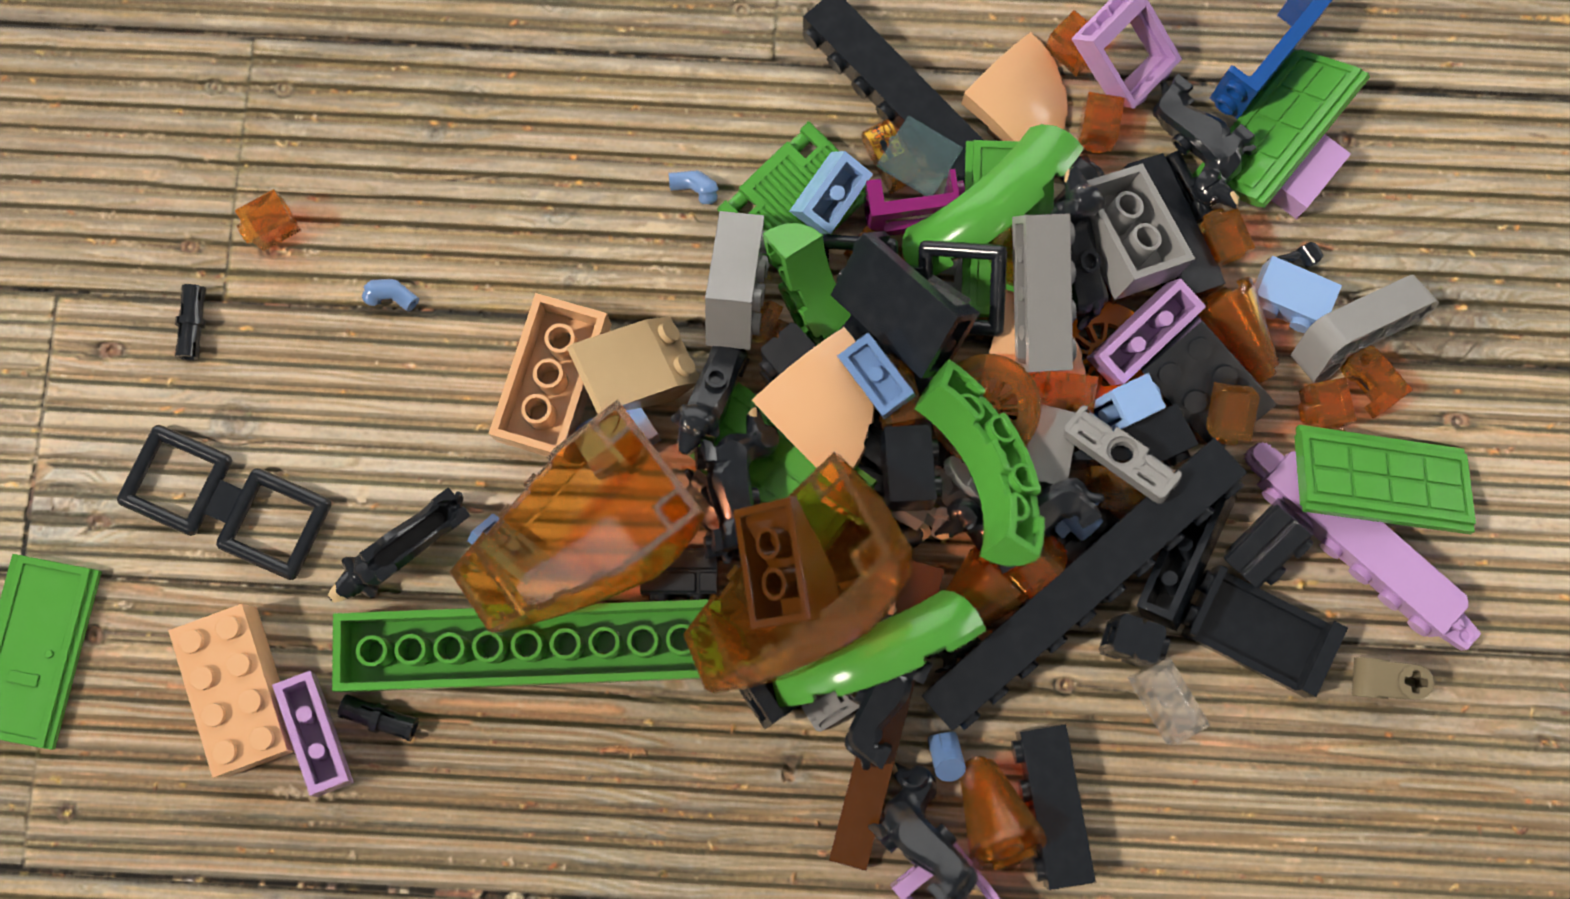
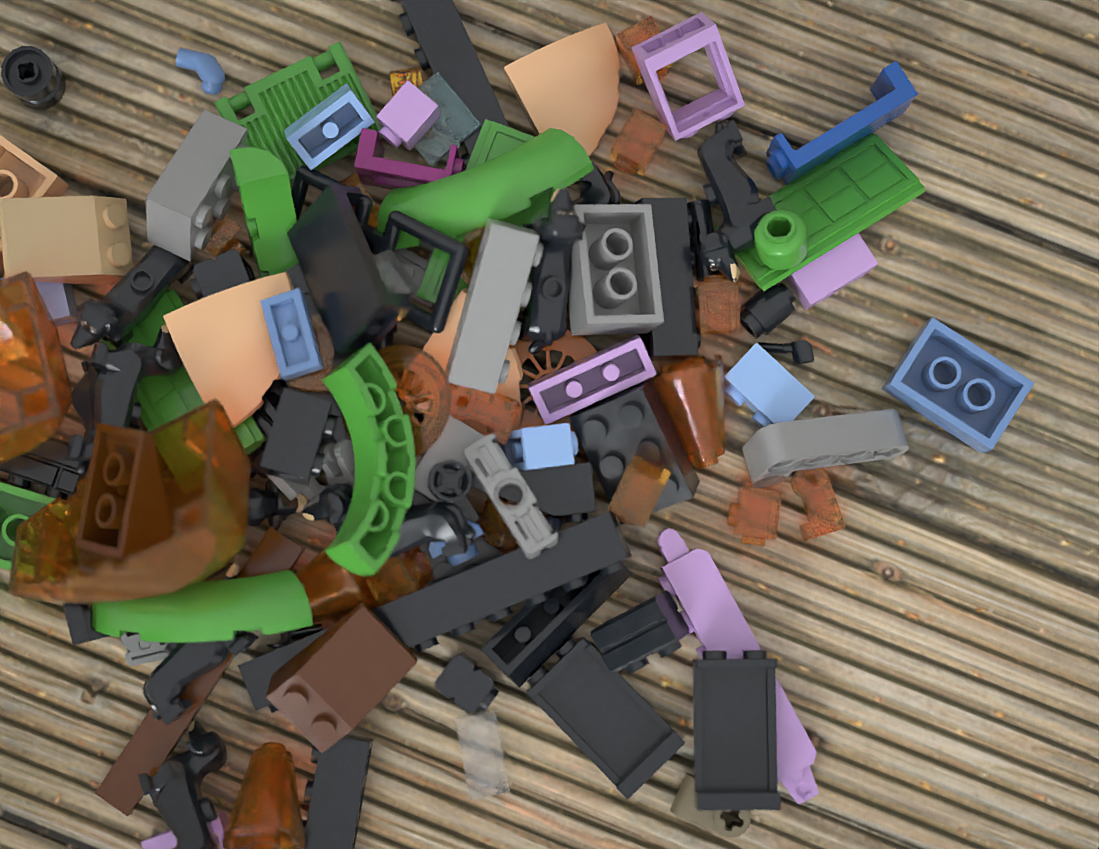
camera: 15 degrees right, 5 degrees up
(550, 238) = (33, 77): none -> black wheel
(900, 159) = (407, 117): none -> lavender brick
(946, 756) = (245, 732): medium blue piece -> none
(1025, 670) = (340, 677): none -> reddish brown slope
(1068, 453) = (455, 481): none -> black wheel
(1268, 226) = (767, 310): none -> black brick
(1269, 155) = (781, 239): none -> bright green head
(1384, 480) = (780, 608): bright green piece -> none
(1391, 601) = (735, 732): none -> black panel
(1460, 235) = (958, 385): none -> medium blue brick

